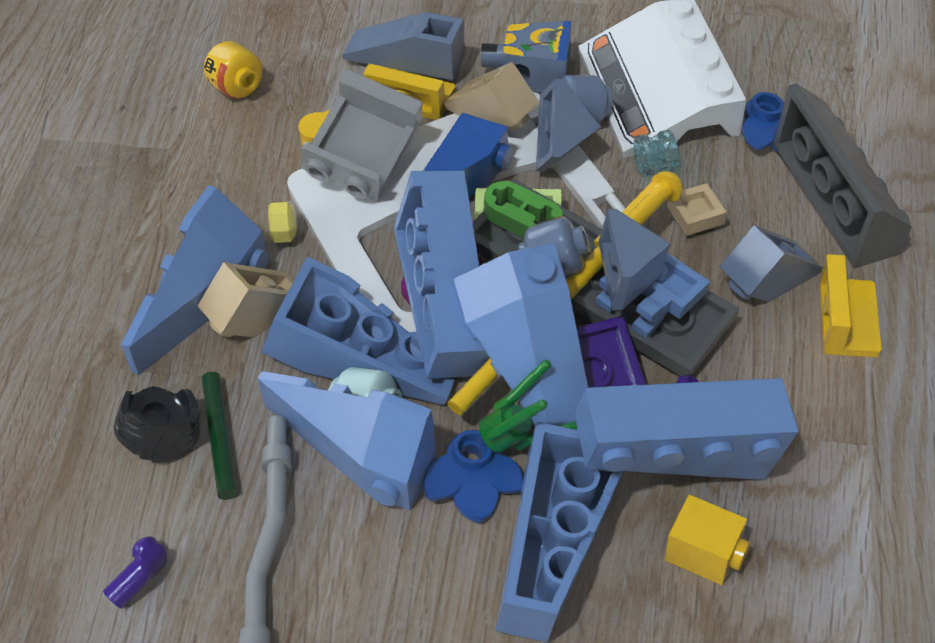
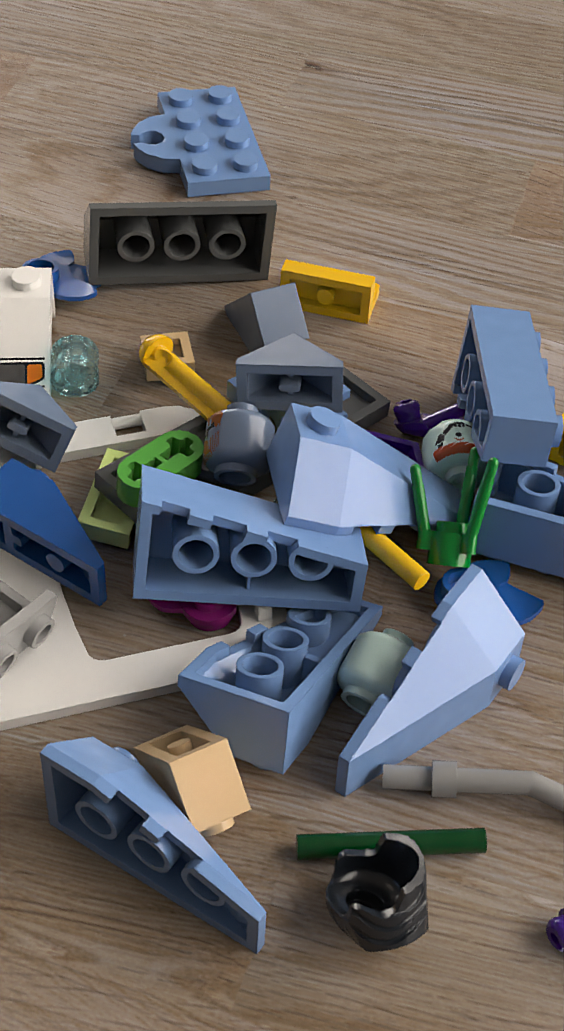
camera: 85 degrees left, 5 degrees down
(282, 222) = (52, 725): light yellow tile -> none

